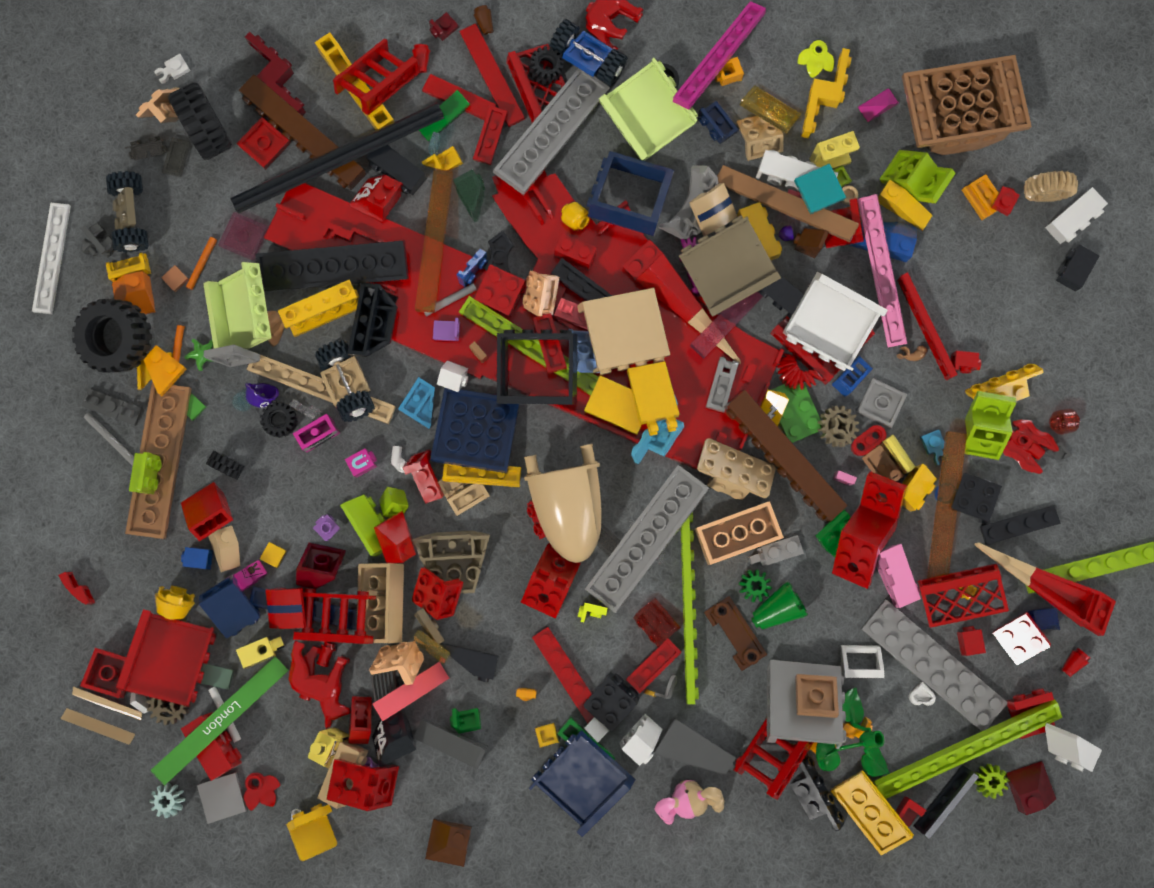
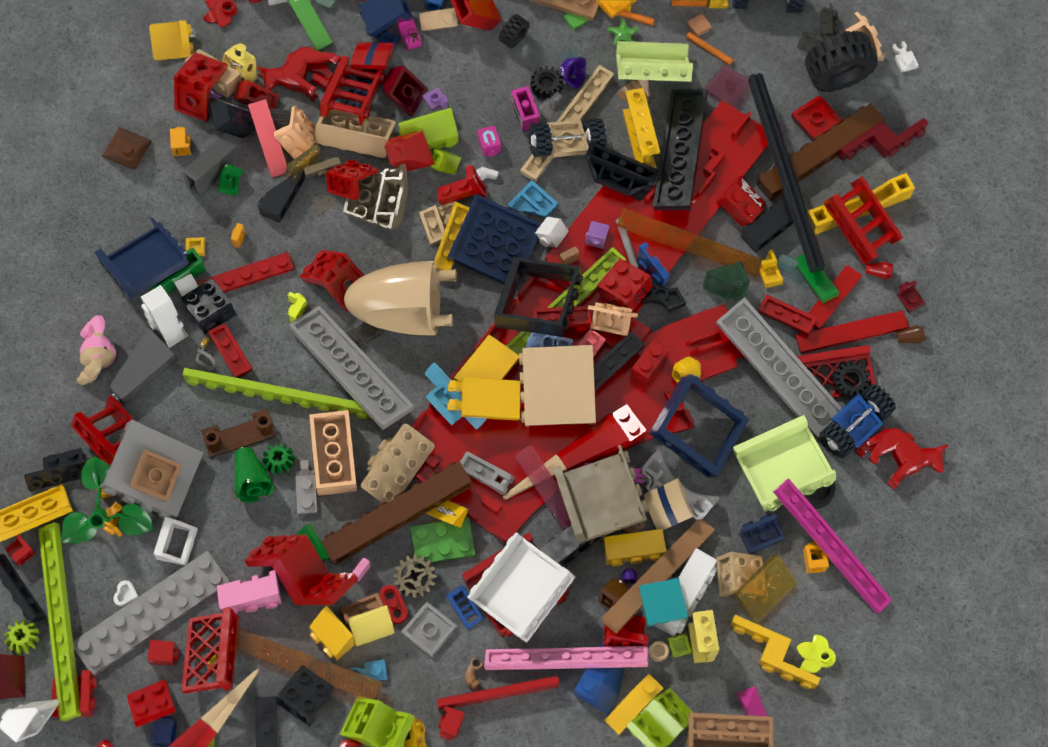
camera: 100 degrees right, 15 degrees down
(231, 356) = (612, 50): light grey tile -> none
(250, 655) = (339, 27): light yellow torso -> none
(273, 554) = (424, 57): yellow tile -> none
(430, 786) = (180, 141): none -> light orange brick
(656, 622) = (270, 361): clear red bracket -> none
(793, 375) = (478, 545): red hair -> none

